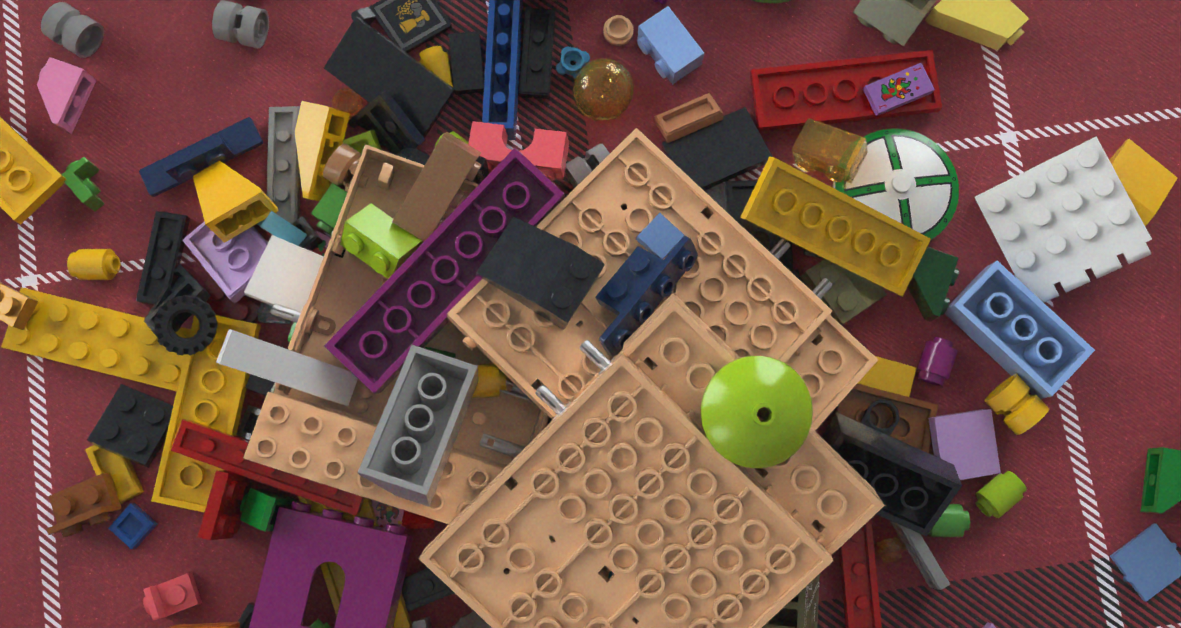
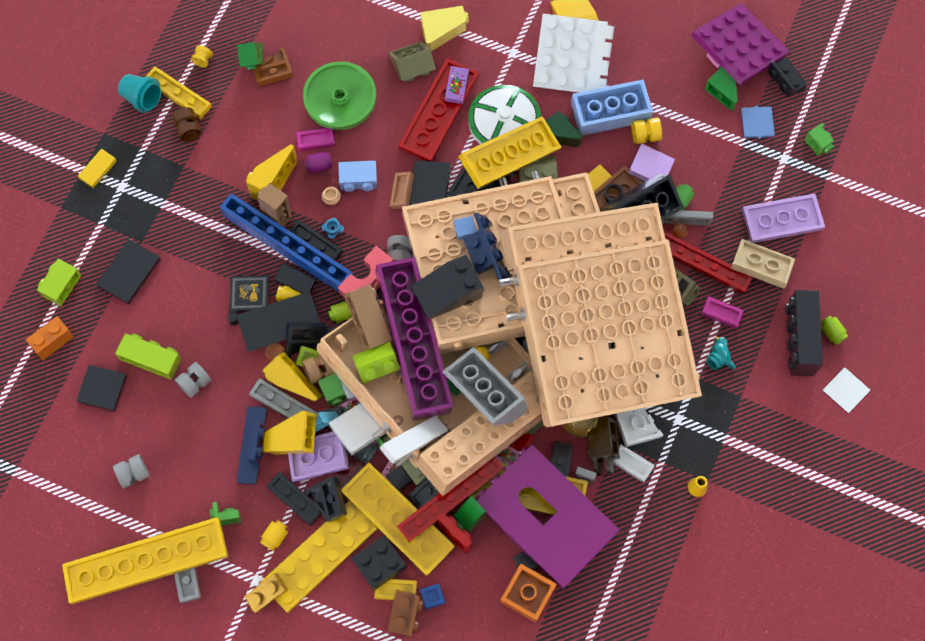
camera: 60 degrees left, 10 degrees down
(64, 92) = (162, 496): bright pink slope -> none
(171, 596) = (484, 594): coral bracket -> none
(175, 343) = (355, 485): black tyre -> none
(603, 89) = (358, 221): clear yellow cylinder -> none
(732, 406) = (576, 235): lime dish -> none
(829, 151) = (466, 134): clear yellow brick -> none
(936, 361) = (602, 153): magenta brick -> none
(1000, 494) = (685, 165): lime brick -> none

